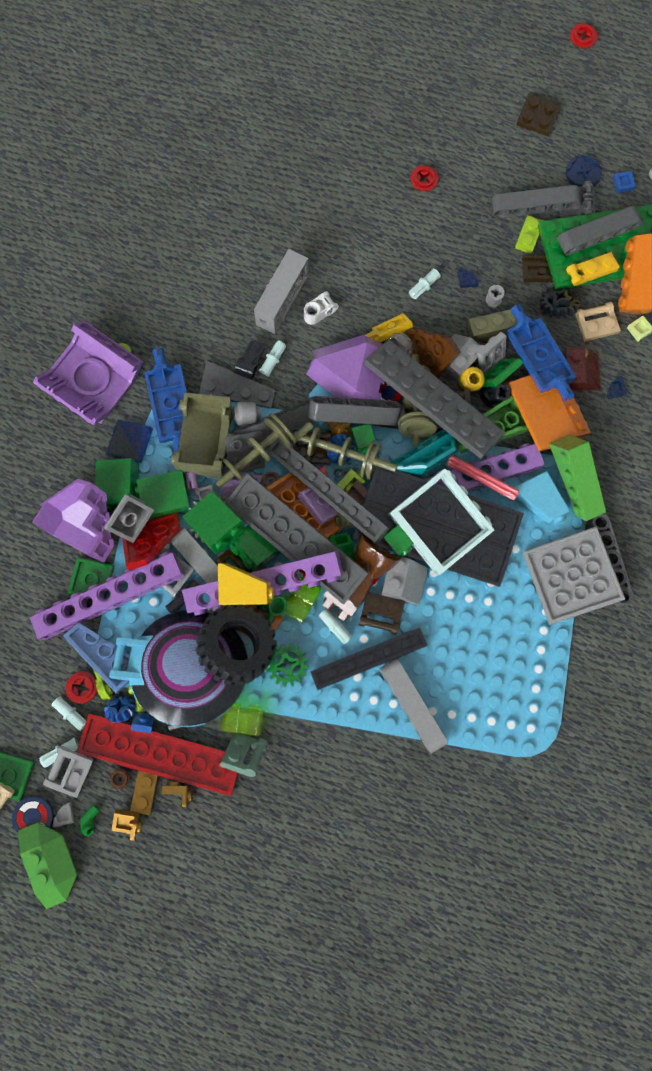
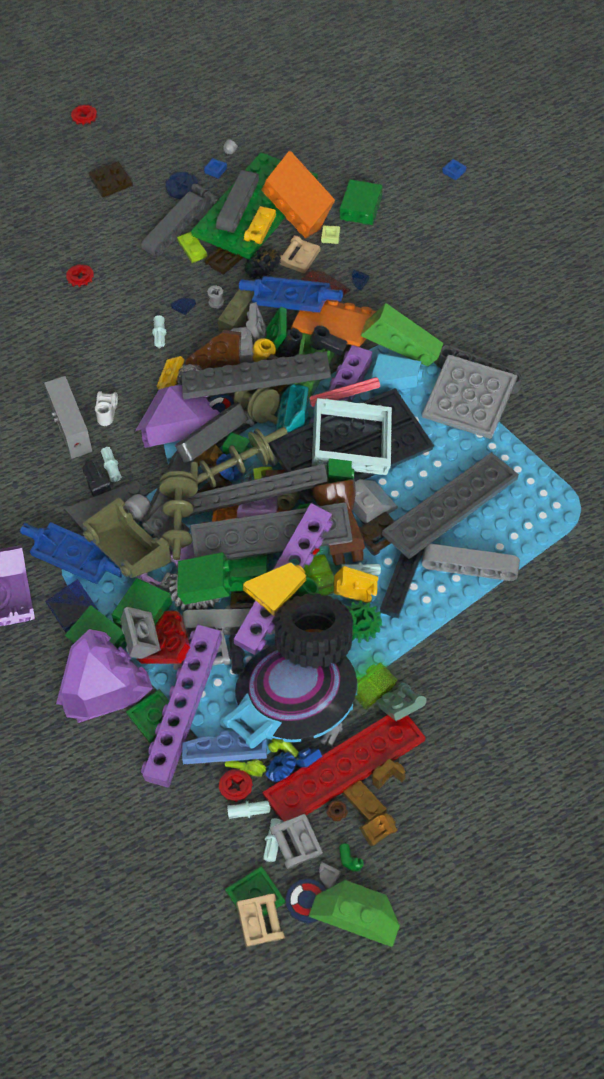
camera: 45 degrees left, 20 degrees down
(312, 636) = (355, 584): none -> yellow hinge
(452, 648) = (450, 505): none -> dark grey plate
(519, 425) = (323, 339): none -> black piece

